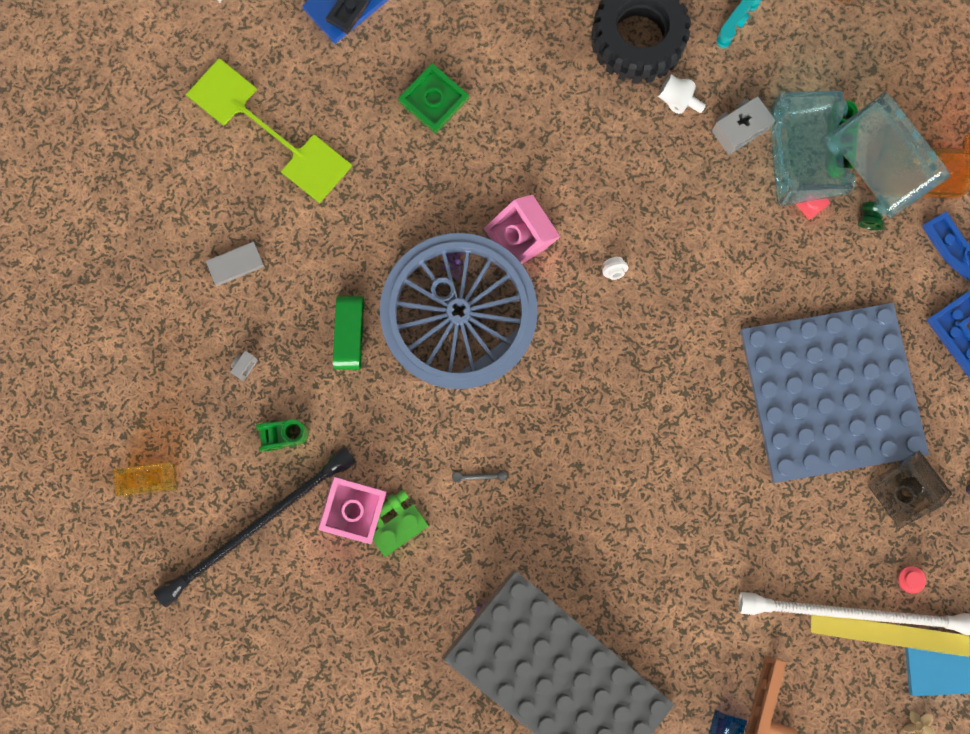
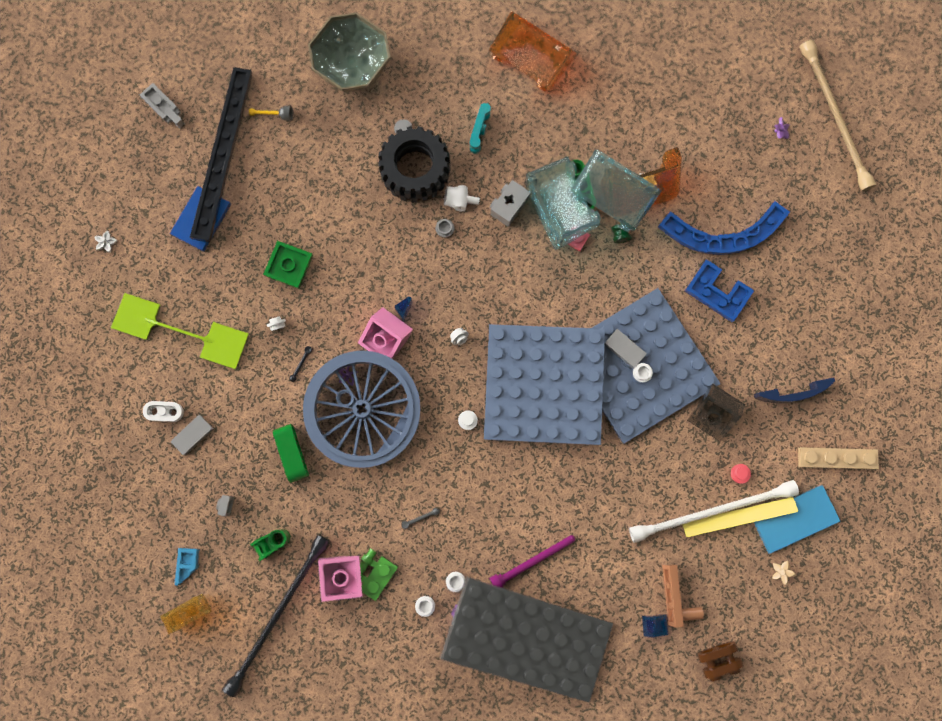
camera: 20 degrees left, 0 degrees up
(168, 419) = (186, 564): none -> dark azure tile
(211, 223) = (164, 411): none -> white plate
(391, 165) = (276, 323): none -> white plate
(418, 214) = (308, 350): none -> black hinge
(444, 588) = (425, 606): none -> white plate
(494, 573) = (455, 581): none -> white plate
(557, 205) = (403, 307): none -> clear blue slope
(586, 377) = (467, 420): none -> white plate
(600, 586) = (500, 580): none -> magenta piece
(647, 126) = (444, 228): none -> light grey plate
(701, 369) = (544, 384): none -> sand blue plate
(822, 363) = (625, 348): none -> light grey tile
(833, 402) = (642, 372): none -> white plate

